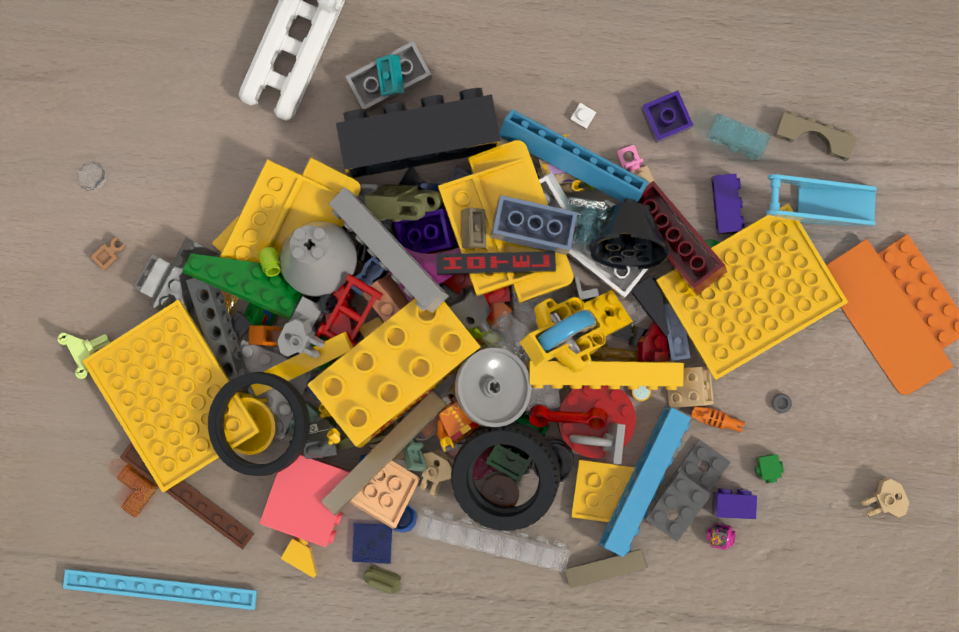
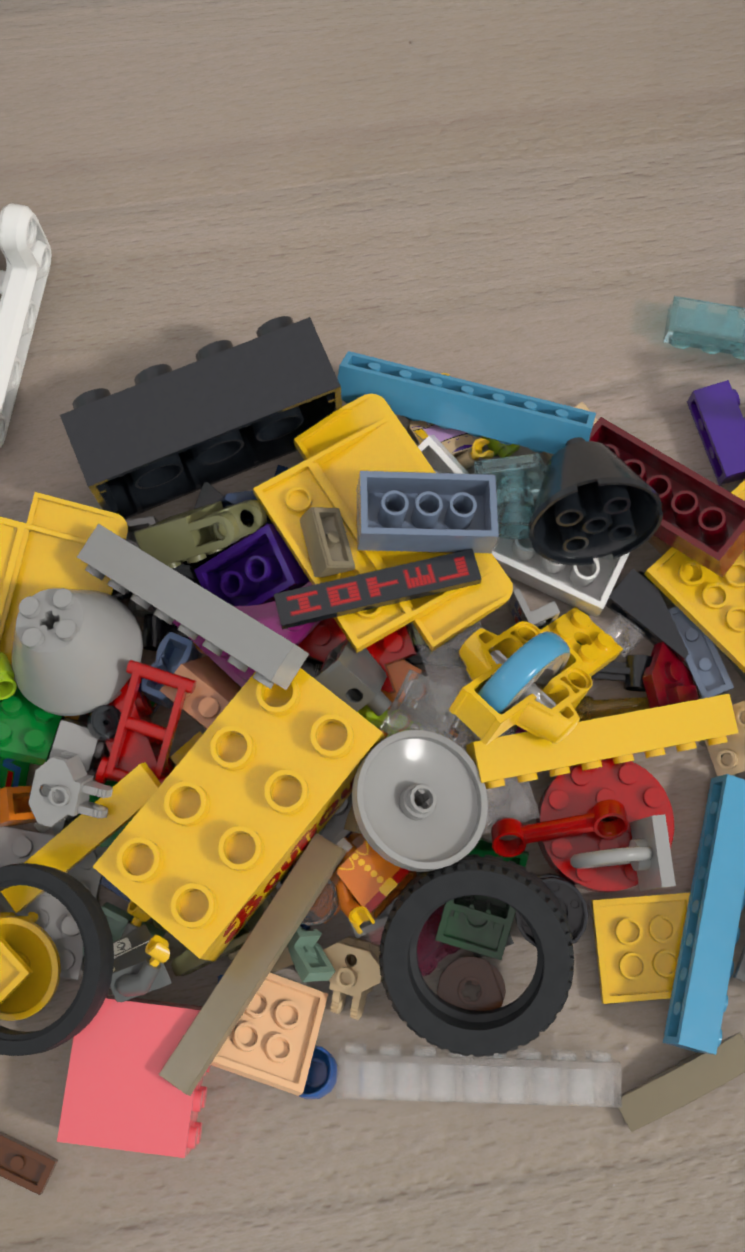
camera: 15 degrees left, 10 degrees down
(300, 556) = (146, 1184): yellow slope -> none
(365, 80) = (152, 335): light grey brick -> none
(372, 543) = (268, 1130): clear blue tile -> none
(382, 579) = (299, 1193): olive piece -> none
(390, 75) = (140, 340): teal slope -> none
(583, 116) = (462, 350): white plate -> none
(633, 165) = (564, 397): bright pink bracket -> none
(641, 394) = (666, 765): light aqua tile -> none
(667, 116) = (595, 319): dark purple brick -> none

